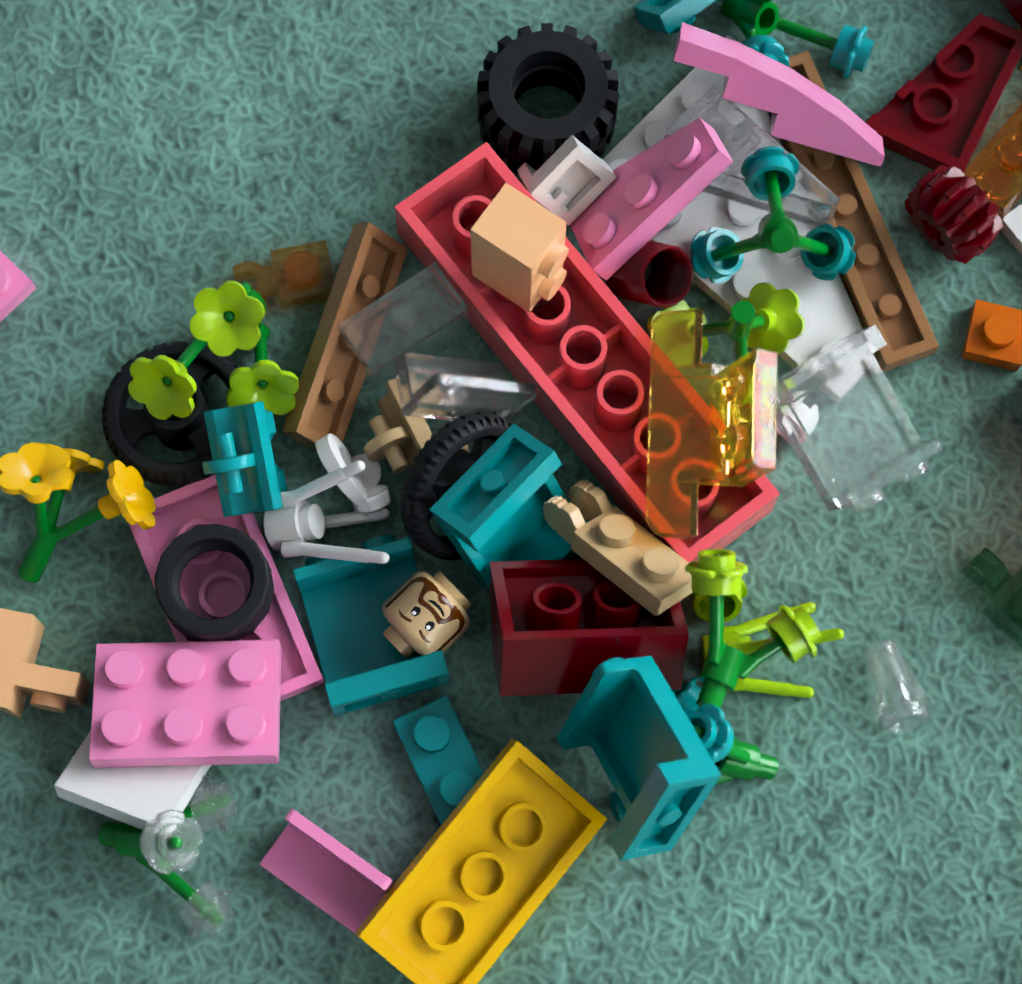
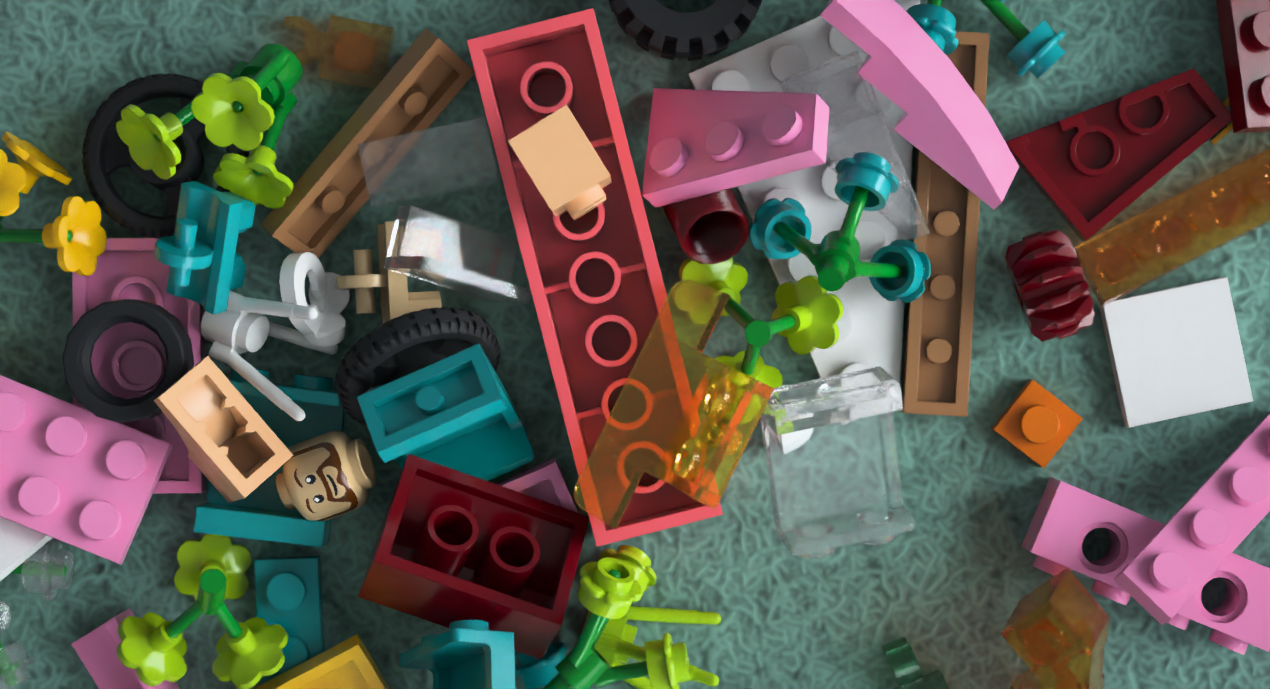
camera: 25 degrees right, 15 degrees up
(322, 605) = (222, 431): none -> light nougat arch
(358, 752) = (211, 572): none -> lime plant
(568, 180) = (660, 83): white bracket -> none
(619, 547) = (541, 501): tan hinge -> none

